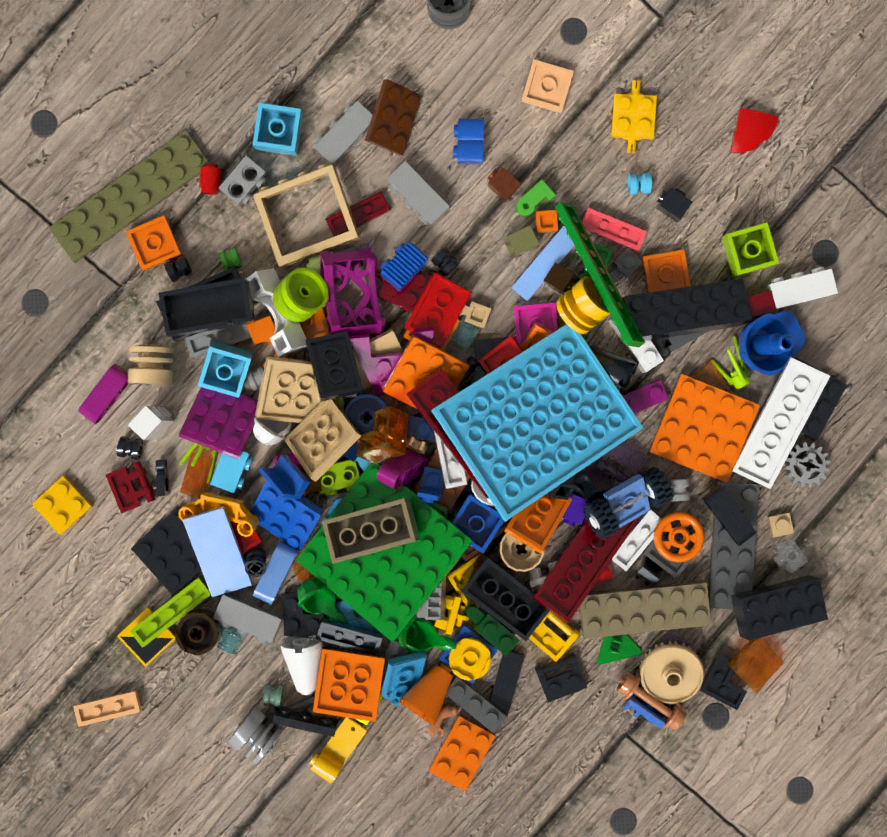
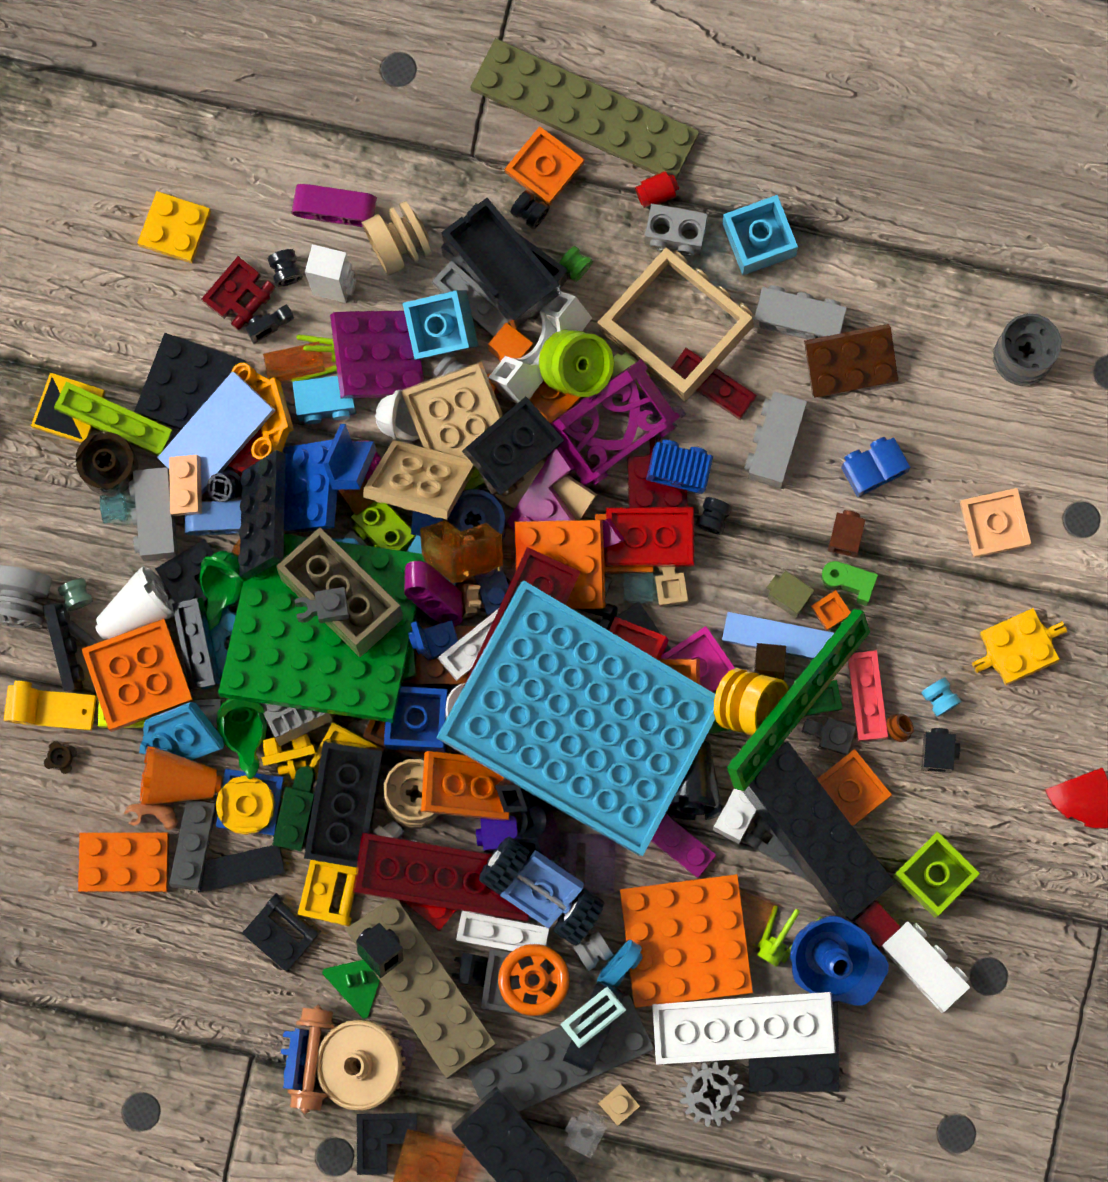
camera: 65 degrees right, 10 degrees down
(241, 589) = (185, 485): none -> light nougat plate
(290, 552) = (262, 515): none -> black plate
(373, 764) = (57, 749): none -> dark brown plate
(379, 544) = (329, 606): none -> dark grey plate
(612, 625) = (380, 949): none -> black brick
(644, 220) = (899, 727): none -> dark orange plate
(698, 478) = (615, 969): none -> dark azure plate
(731, 495) = (573, 1033): none -> light aqua tile

